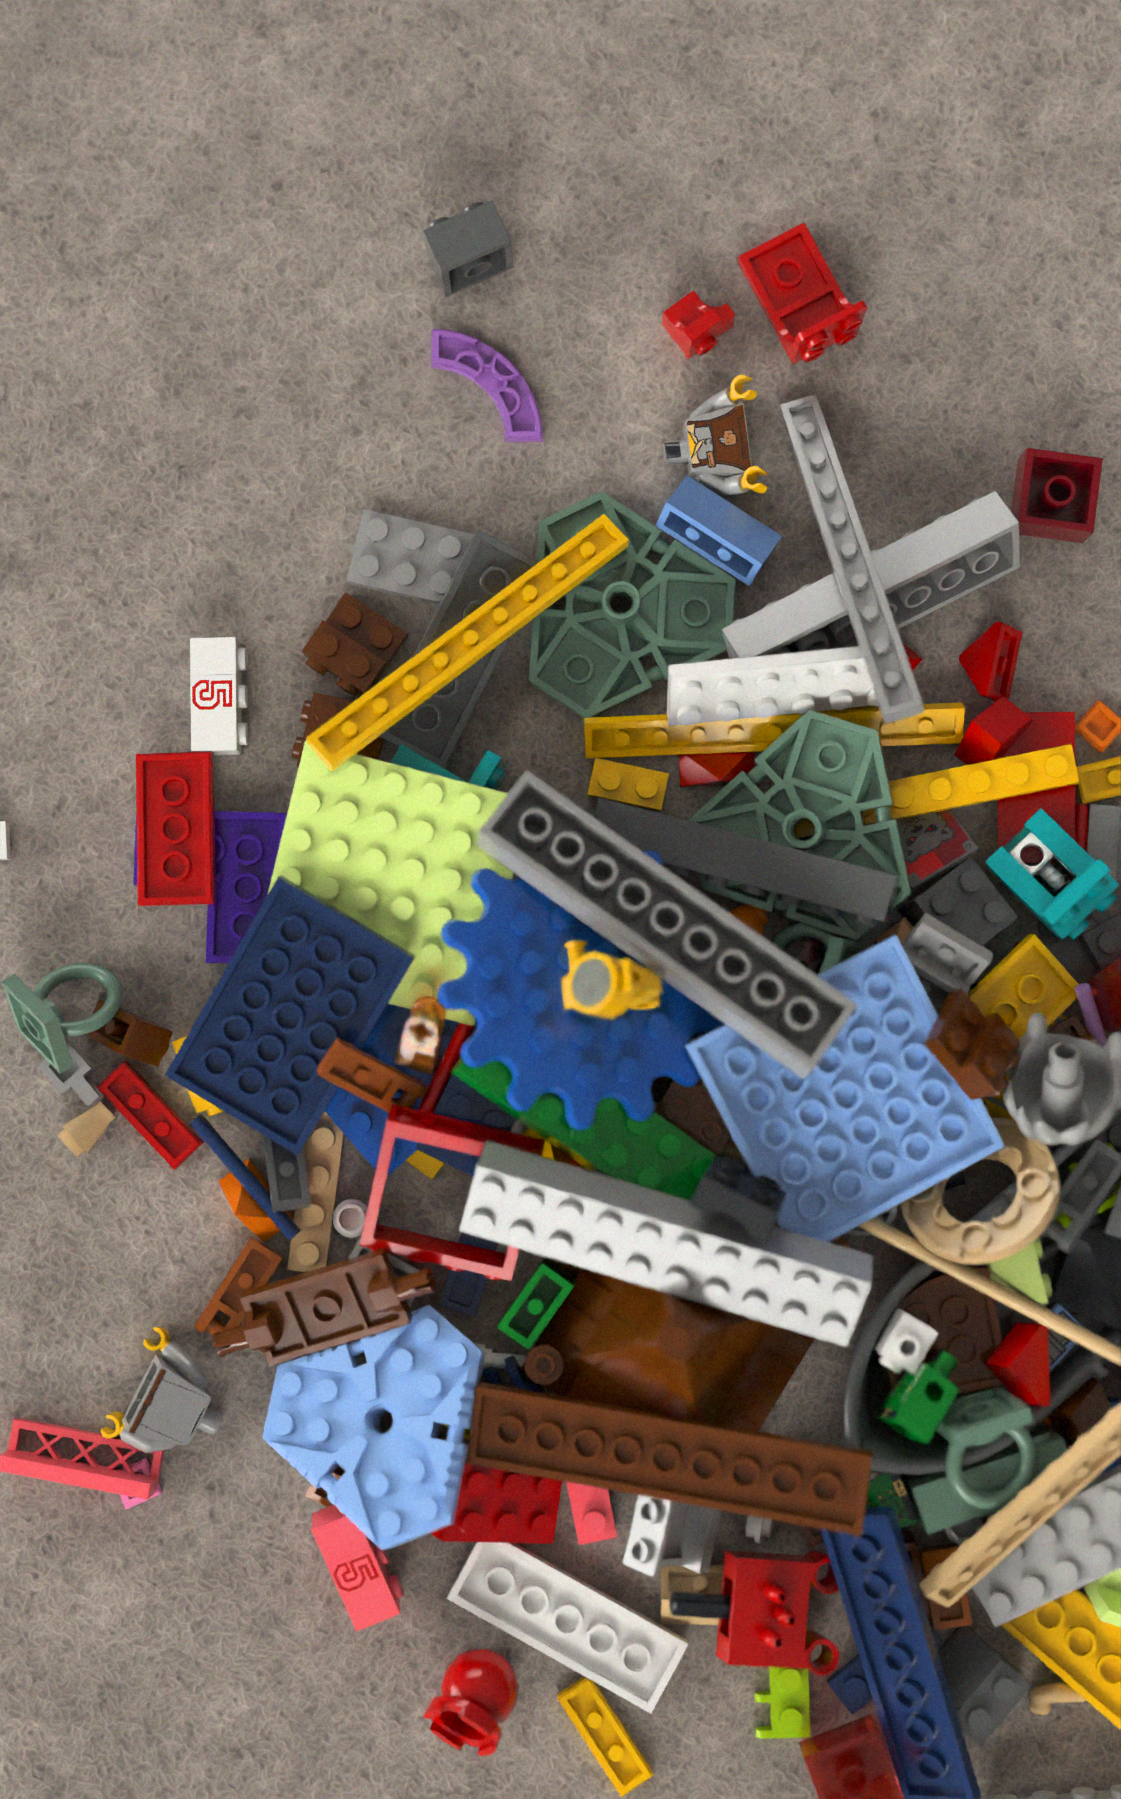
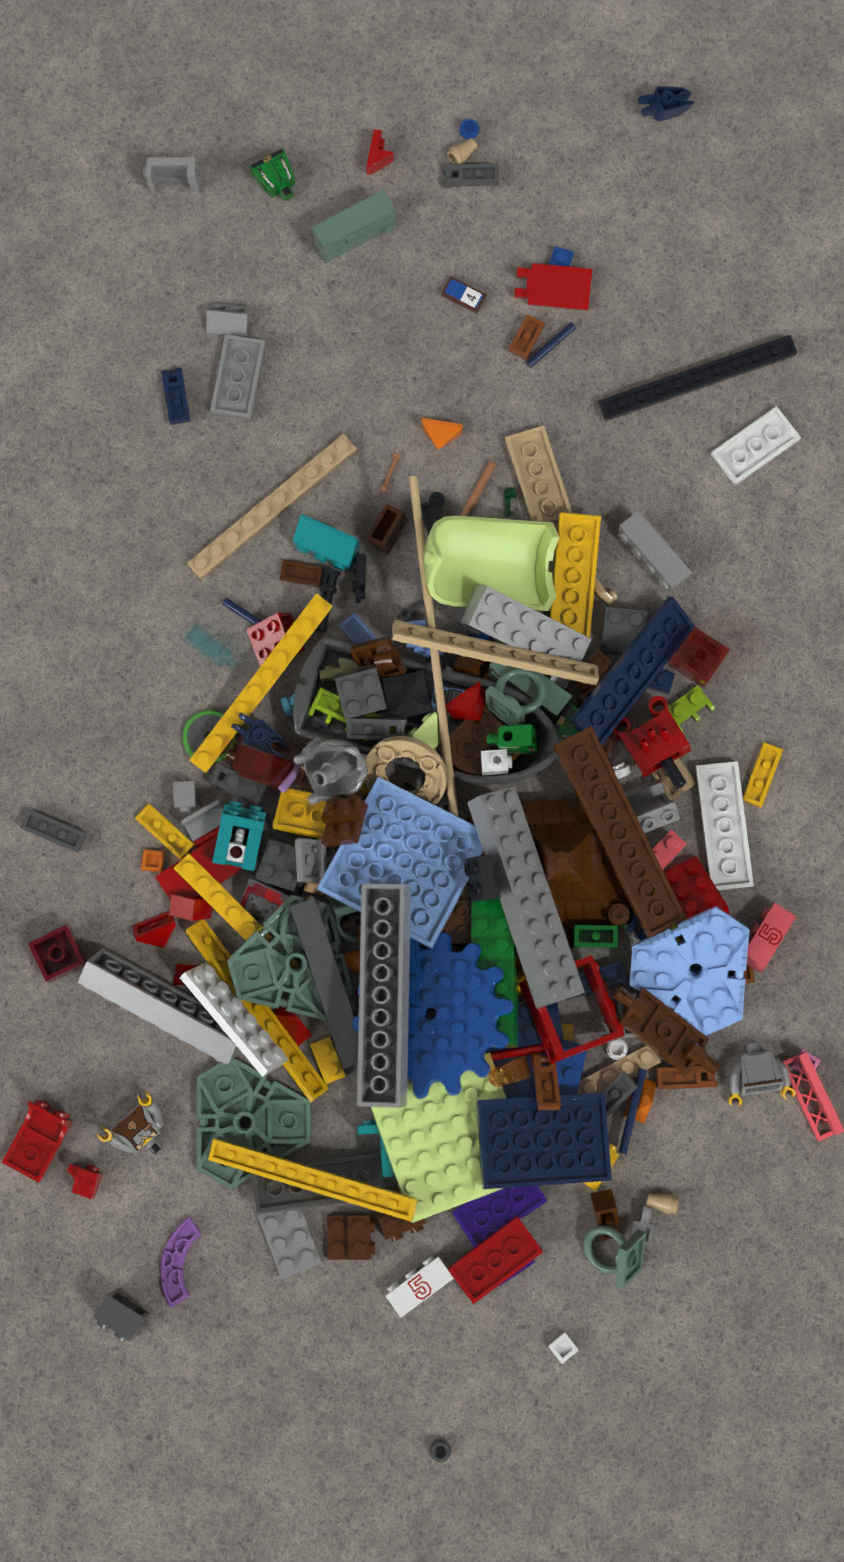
camera: 125 degrees left, 5 degrees down
(150, 1114) = (636, 1177): red tile -> none
(475, 1698) = (788, 842): red tile -> none
(606, 984) = (429, 1001): yellow piece -> none
(718, 530) = (179, 1100): medium blue brick -> none
(851, 560) = (154, 1028): light grey plate -> none

